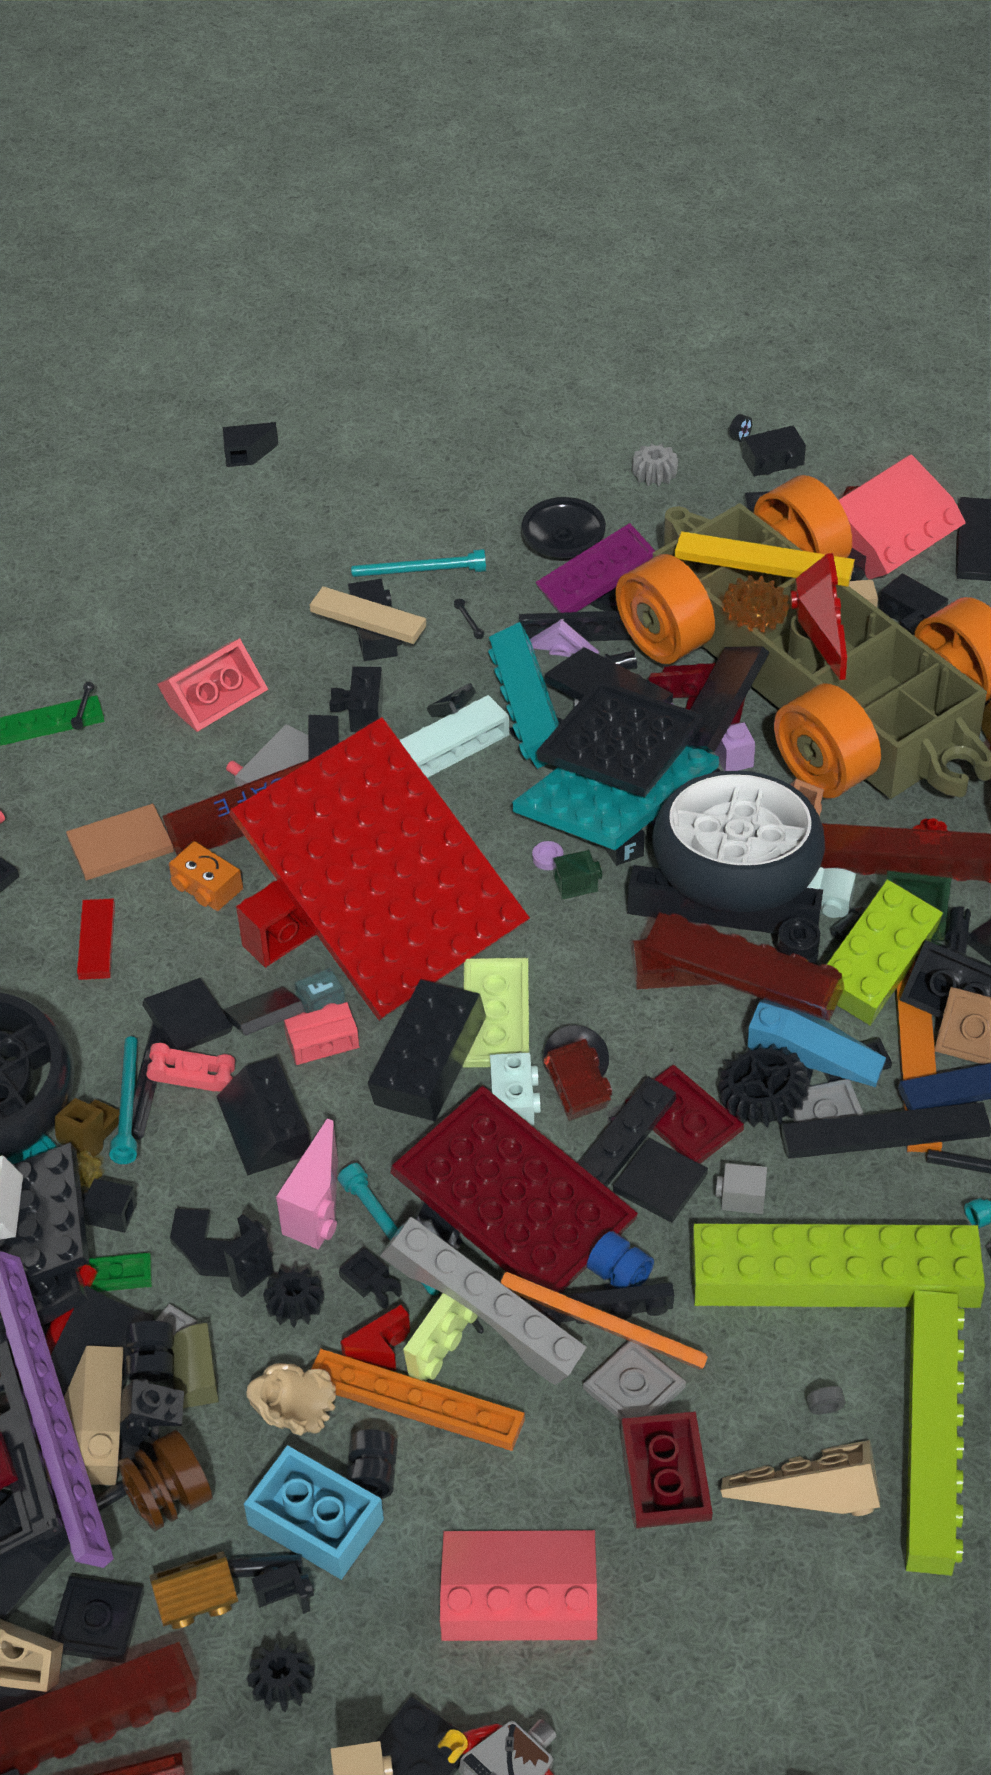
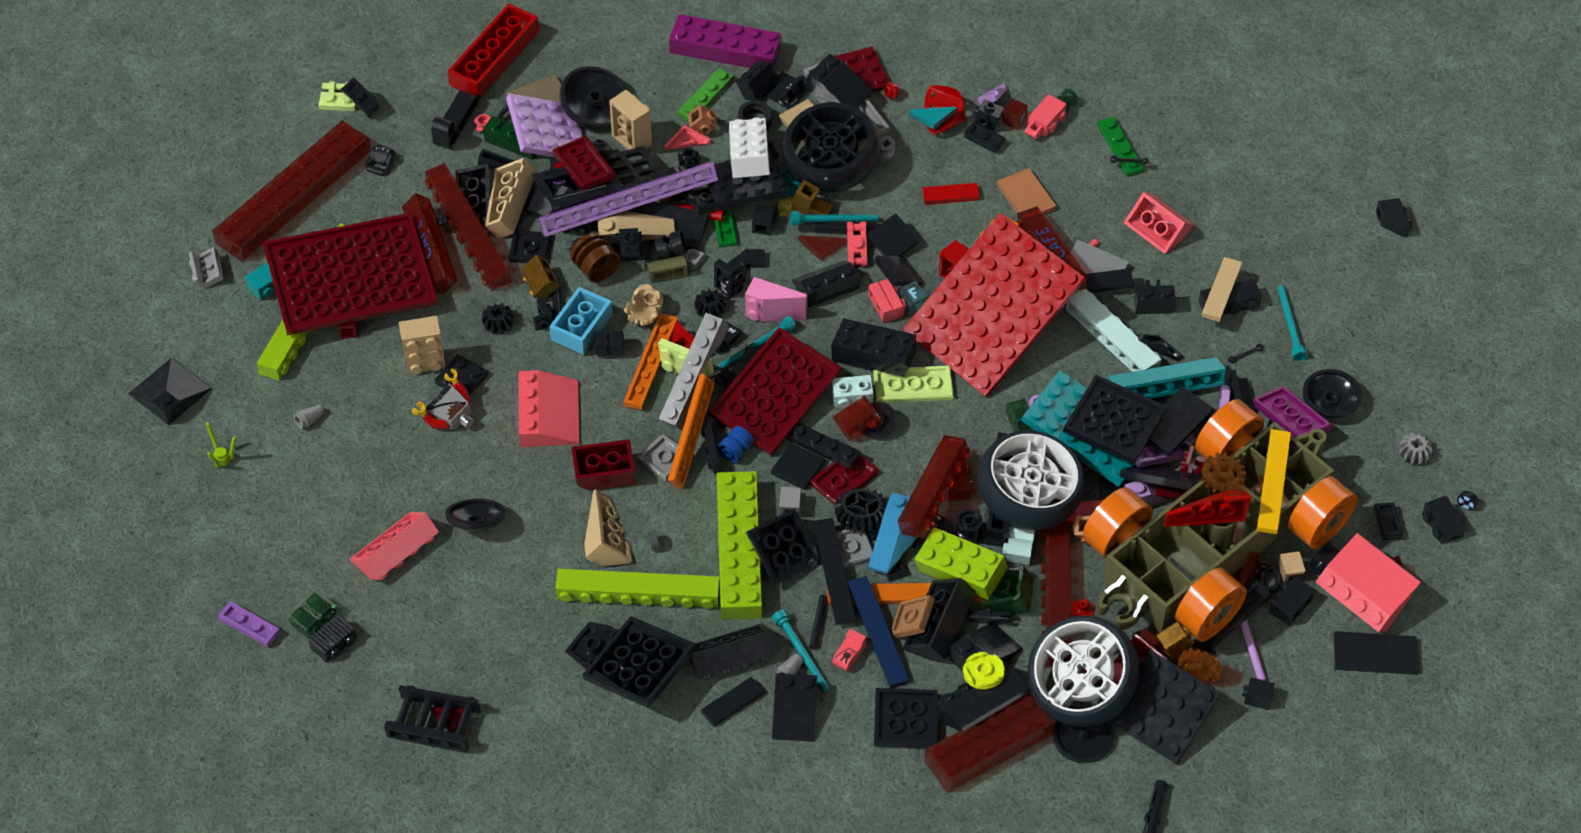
camera: 85 degrees right, 5 degrees up
(178, 1125) = (822, 246): none -> clear red tile
(766, 1700) = (475, 514): none -> black dish
(838, 1194) = (784, 546): none -> black slope

